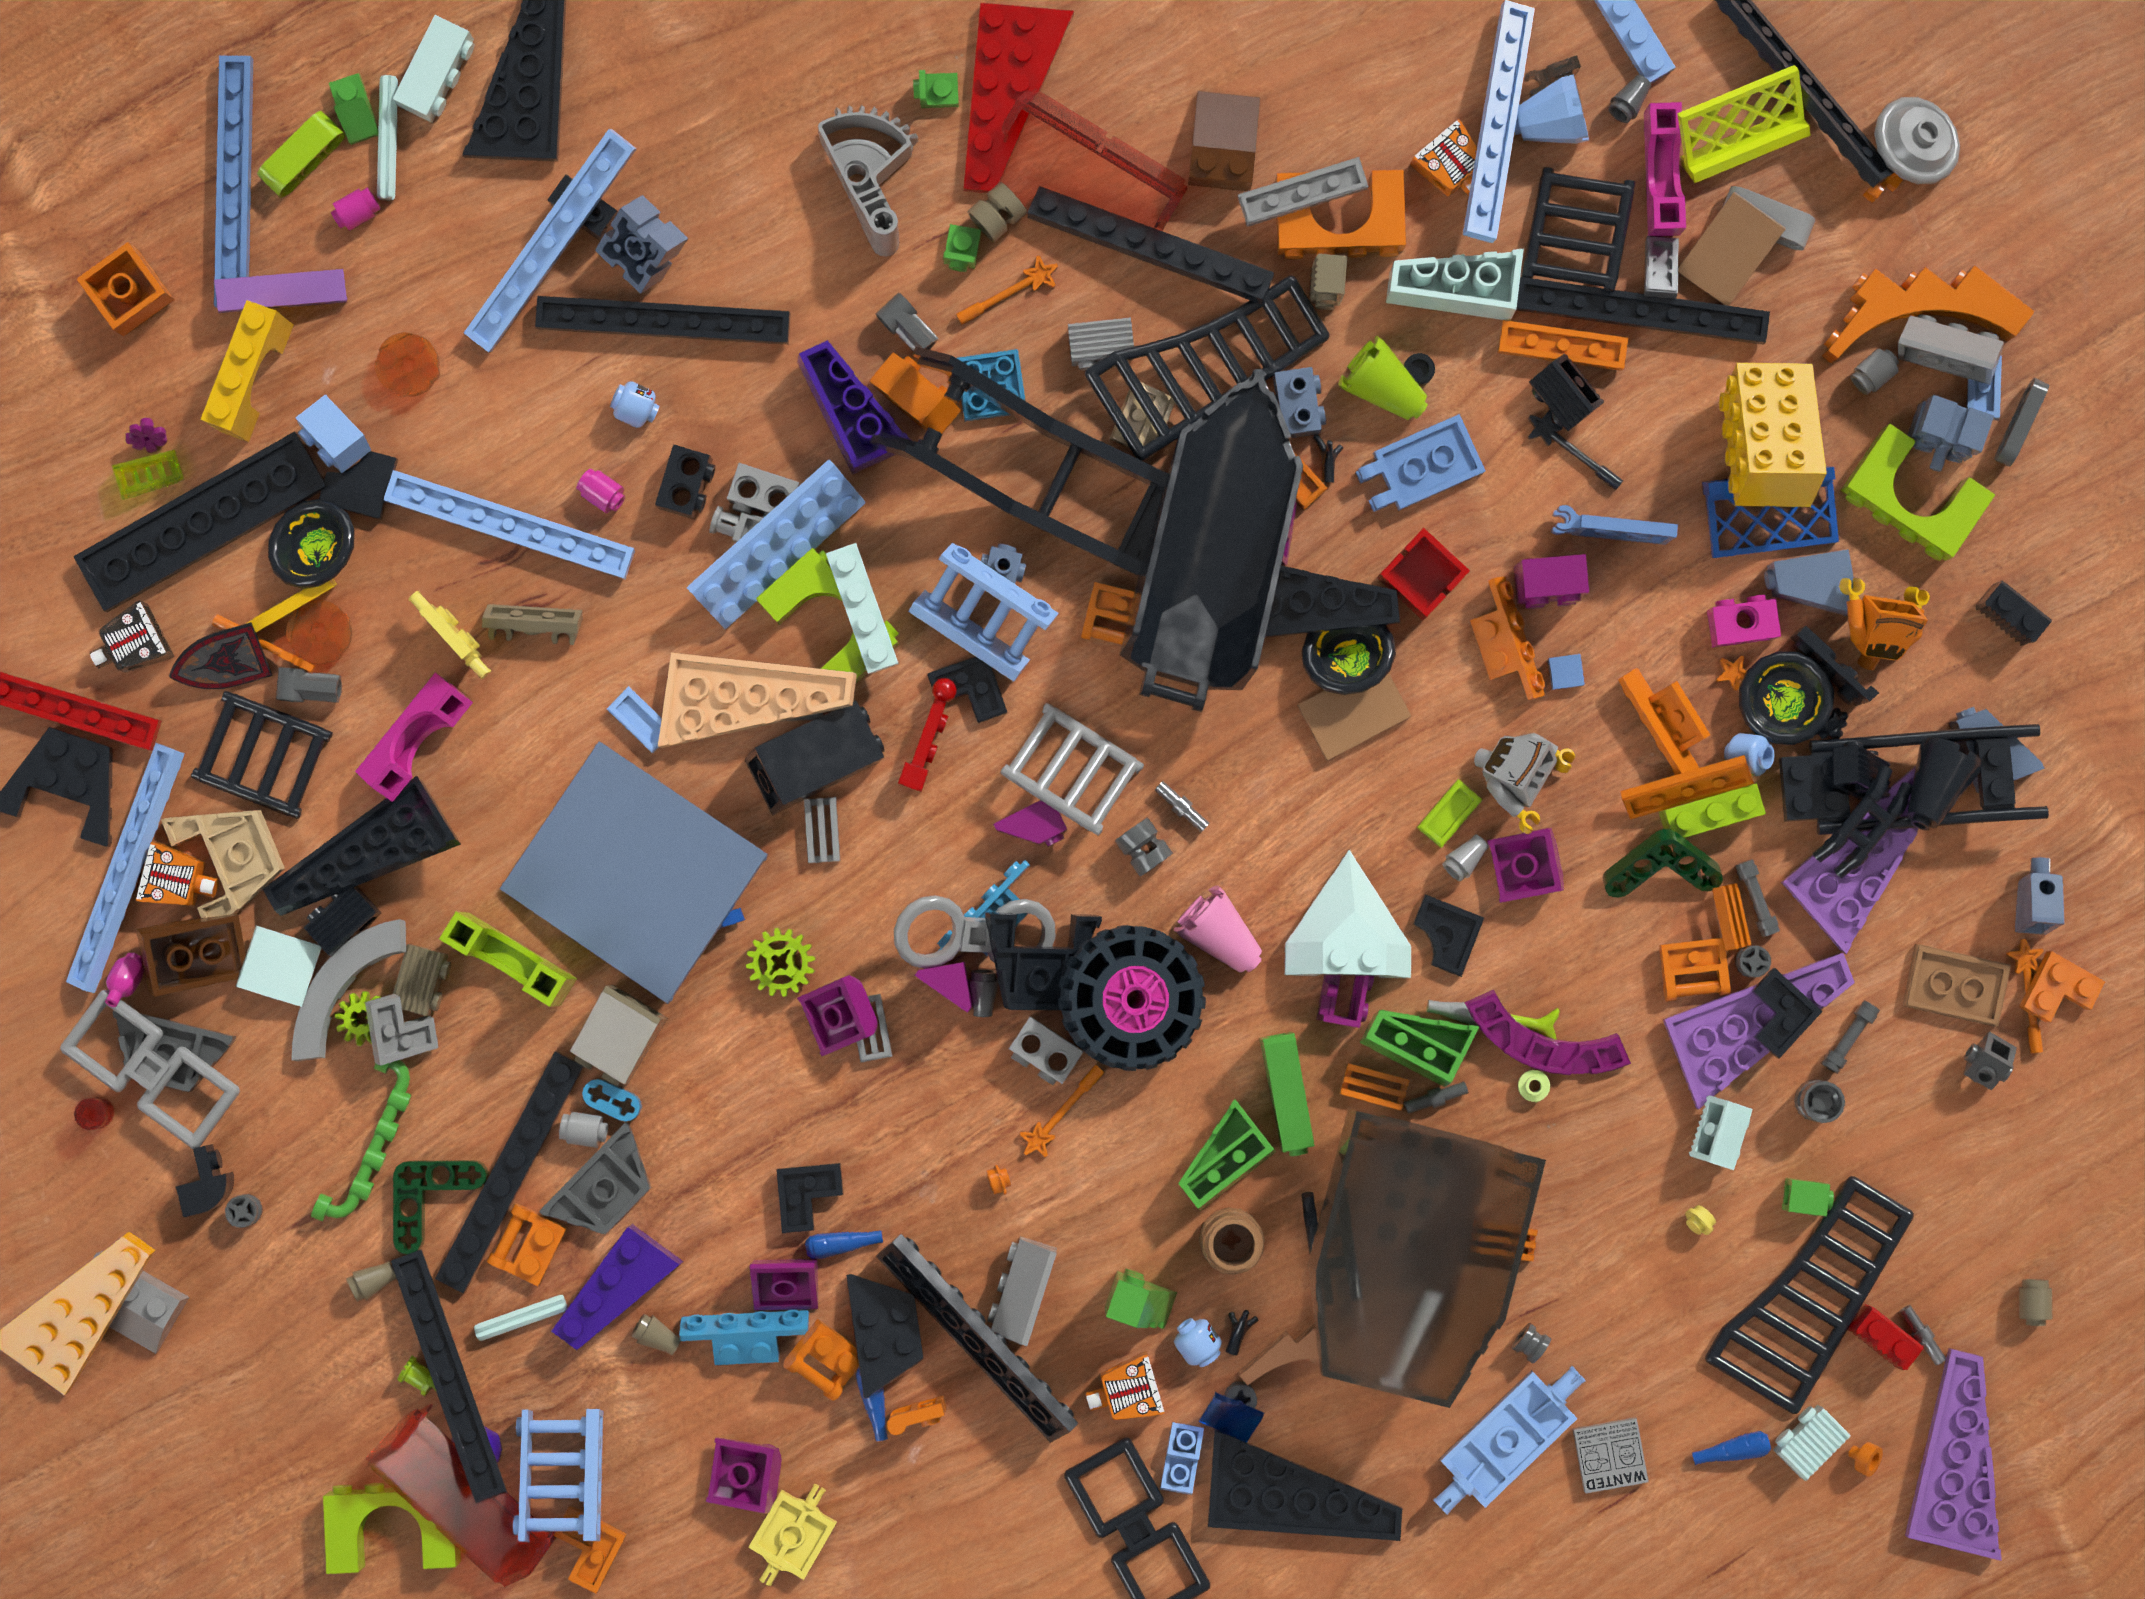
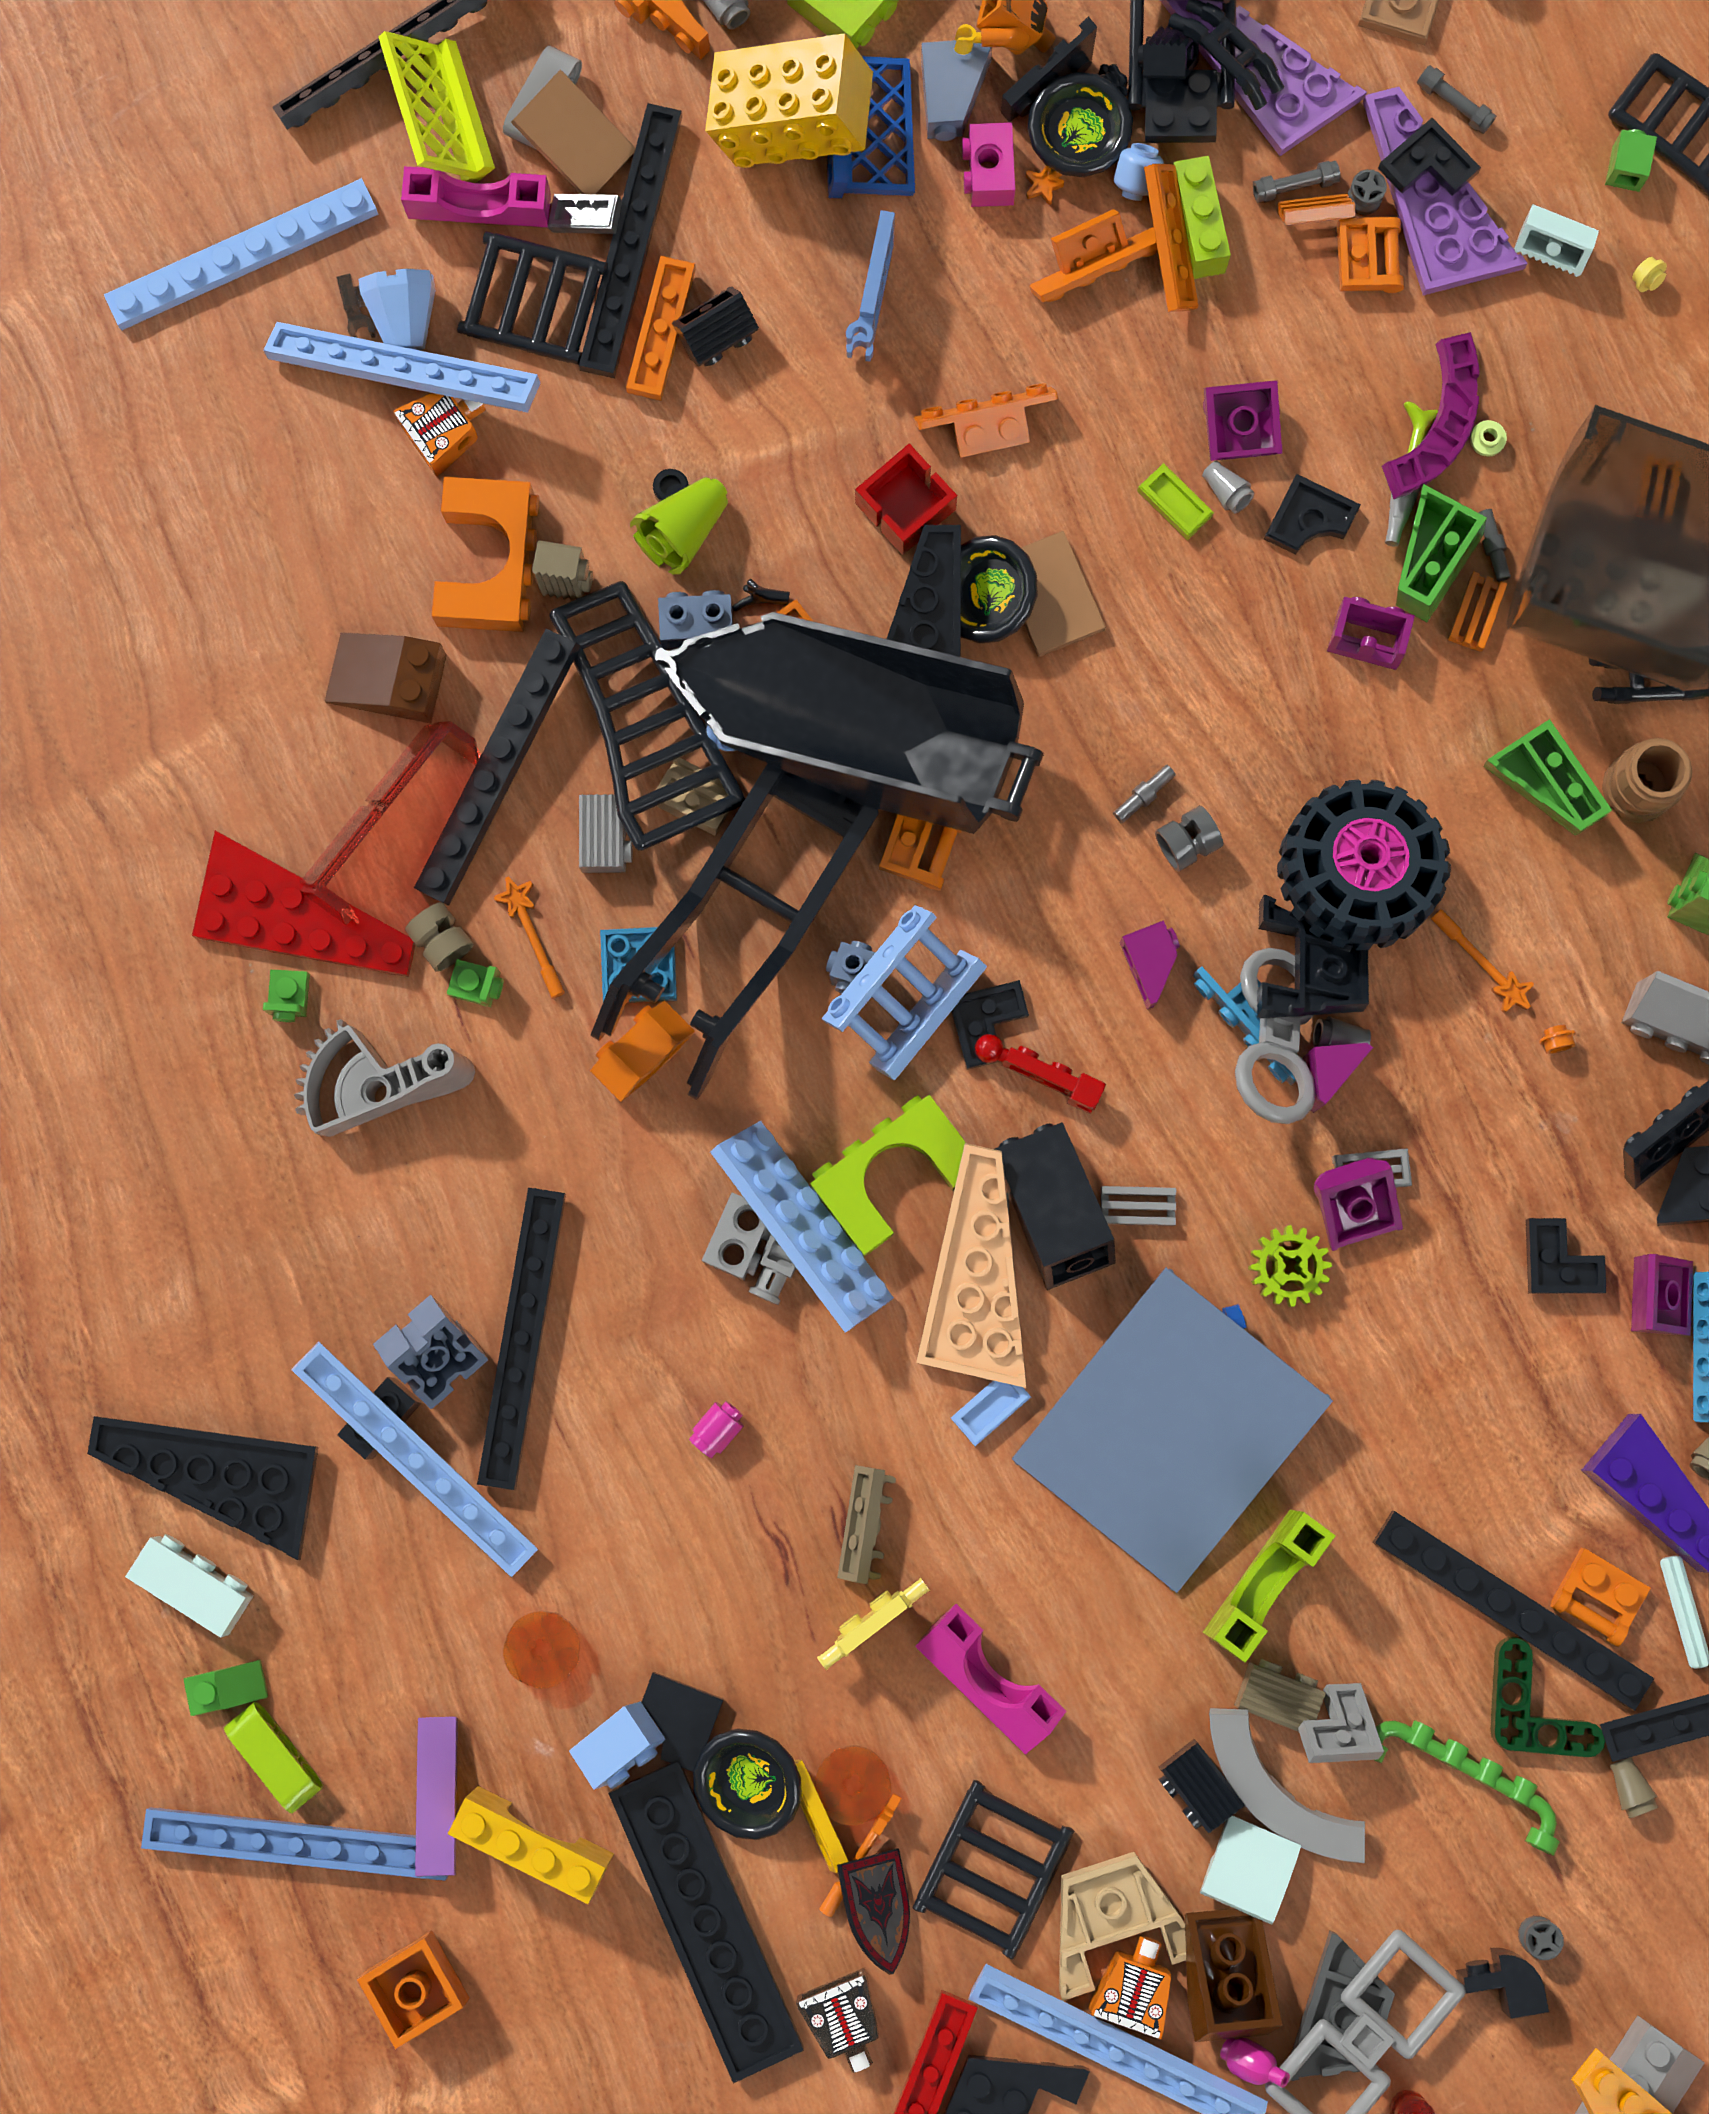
camera: 80 degrees left, 5 degrees down
(146, 436) = (594, 1979): magenta plant -> none
(151, 485) = (657, 1994): clear neon green slope -> none
(299, 685) = (915, 1813): dark grey piece -> none
(350, 1018) = (1321, 1786): lime gear -> none
(355, 208) = (347, 1696): dark pink brick -> none
(370, 847) = (1120, 1747): black wing -> none
(387, 138) = (265, 1650): light aqua axle -> none
(509, 524) = (745, 1544): light blue plate -> none
(583, 1129) = (1470, 1516): light grey brick -> none
(603, 1186) = (1538, 1499): dark grey wing -> none
(609, 1107) = (1444, 1484): dark azure beam -> none
(617, 1035) = (1363, 1464): slope -> none
(634, 404) = (618, 1380): light blue head -> none
(675, 481) = (713, 1336): black brick -> none
(832, 1244) = (1619, 1228): blue piece -> none
(847, 406) = (648, 1129): dark purple wedge -> none
(862, 608) = (888, 1130): light aqua plate -> none
(902, 320) = (550, 1059): dark grey piece -> none
(1040, 788) = (1115, 945): light grey bar -> none
(1050, 1044) = (1408, 967): light grey brick -> none
(1220, 931) = (1290, 763): bright pink cone -> none
(1287, 1092) = (1478, 704): bright green slope -> none
(1303, 191) = (456, 588): light grey tile -> none
(1348, 931) = (1302, 623): light aqua wedge -> none
(1423, 464) = (780, 491): medium blue tile -> none
(1459, 284) = (581, 428): light aqua wedge -> none
(1519, 770) = (1139, 416): light grey torso -> none
(1548, 430) = (754, 356): black piece -> none
(1551, 580) = (928, 359): magenta brick -> none
(1566, 672) = (1027, 360): medium blue tile -> none
(1625, 877) = (1241, 276): dark green beam -> none
(1628, 101) = (392, 229): dark grey cone -> none
(1819, 1101) = (1527, 134): dark grey wheel -> none

